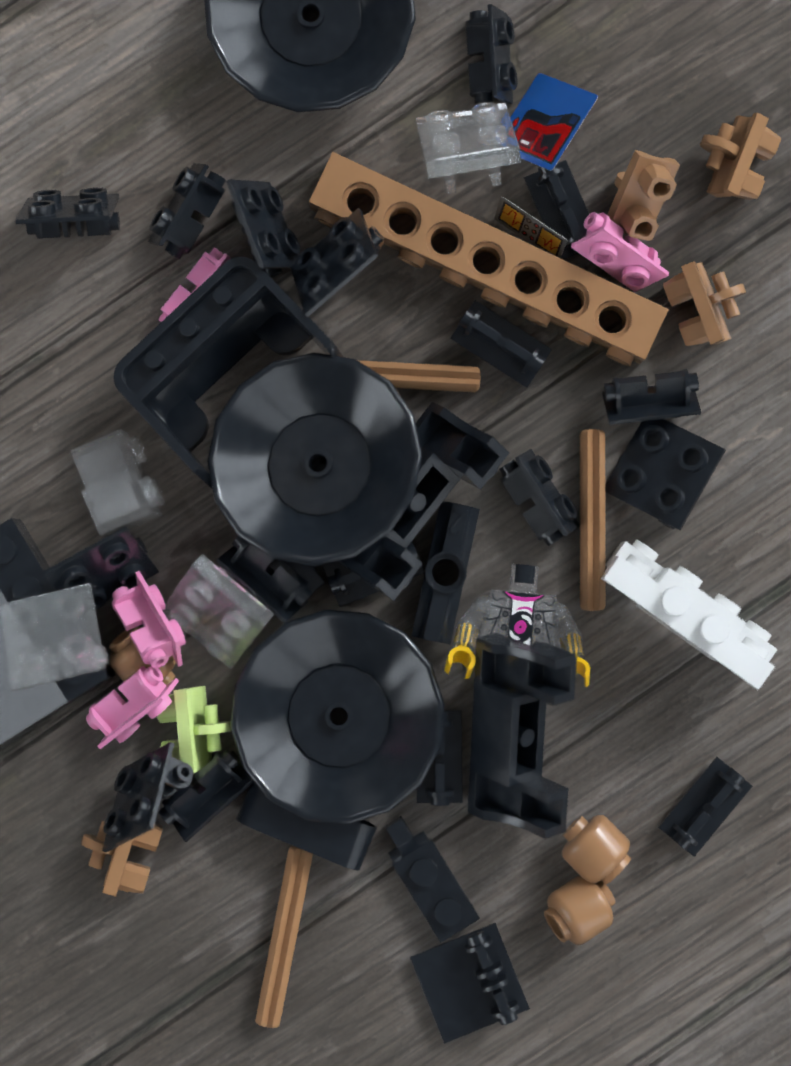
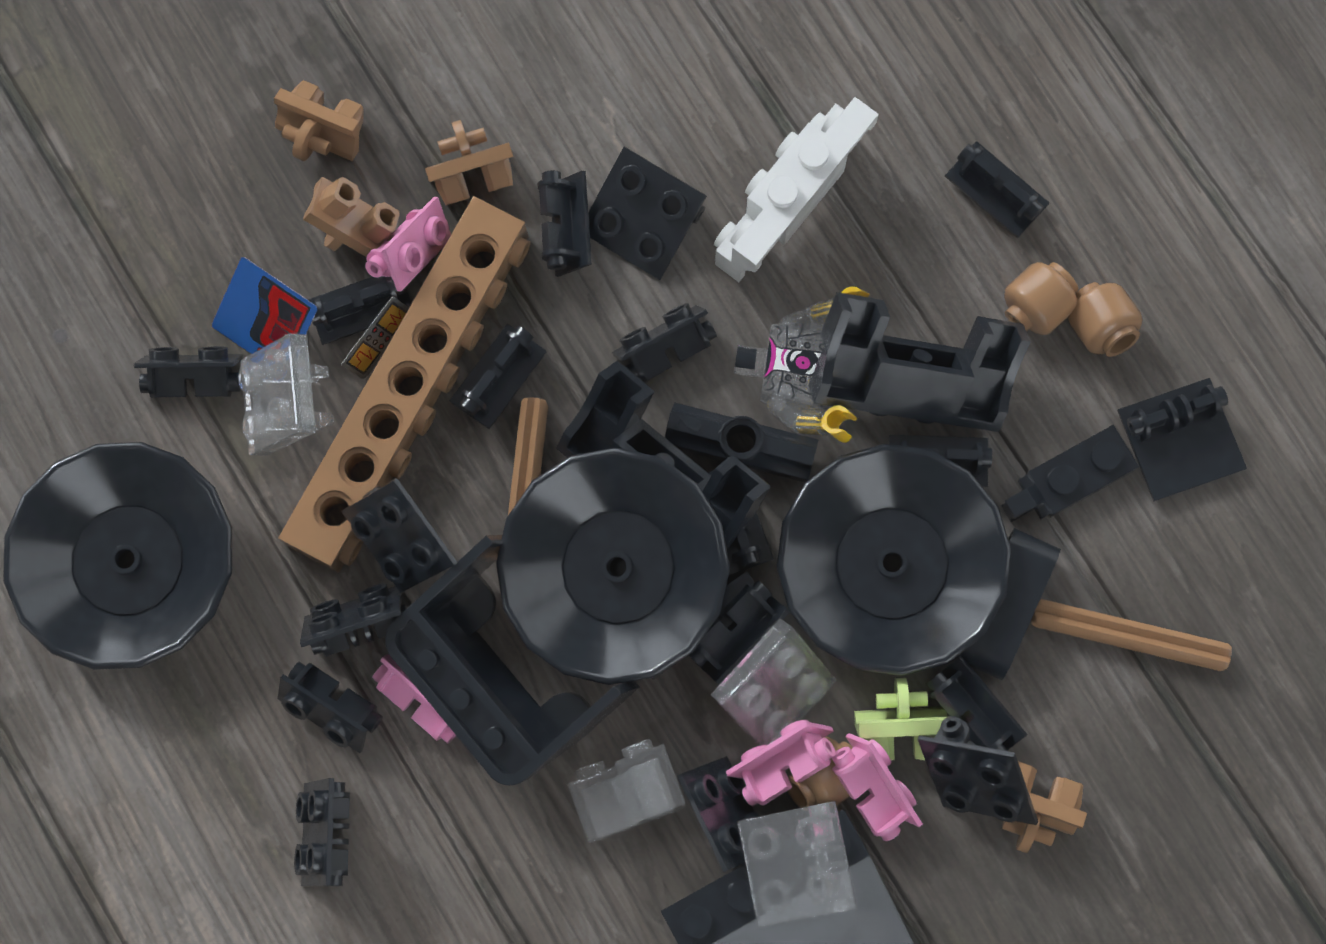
camera: 85 degrees left, 10 degrees down
(592, 520) = (691, 290): medium nougat axle -> none

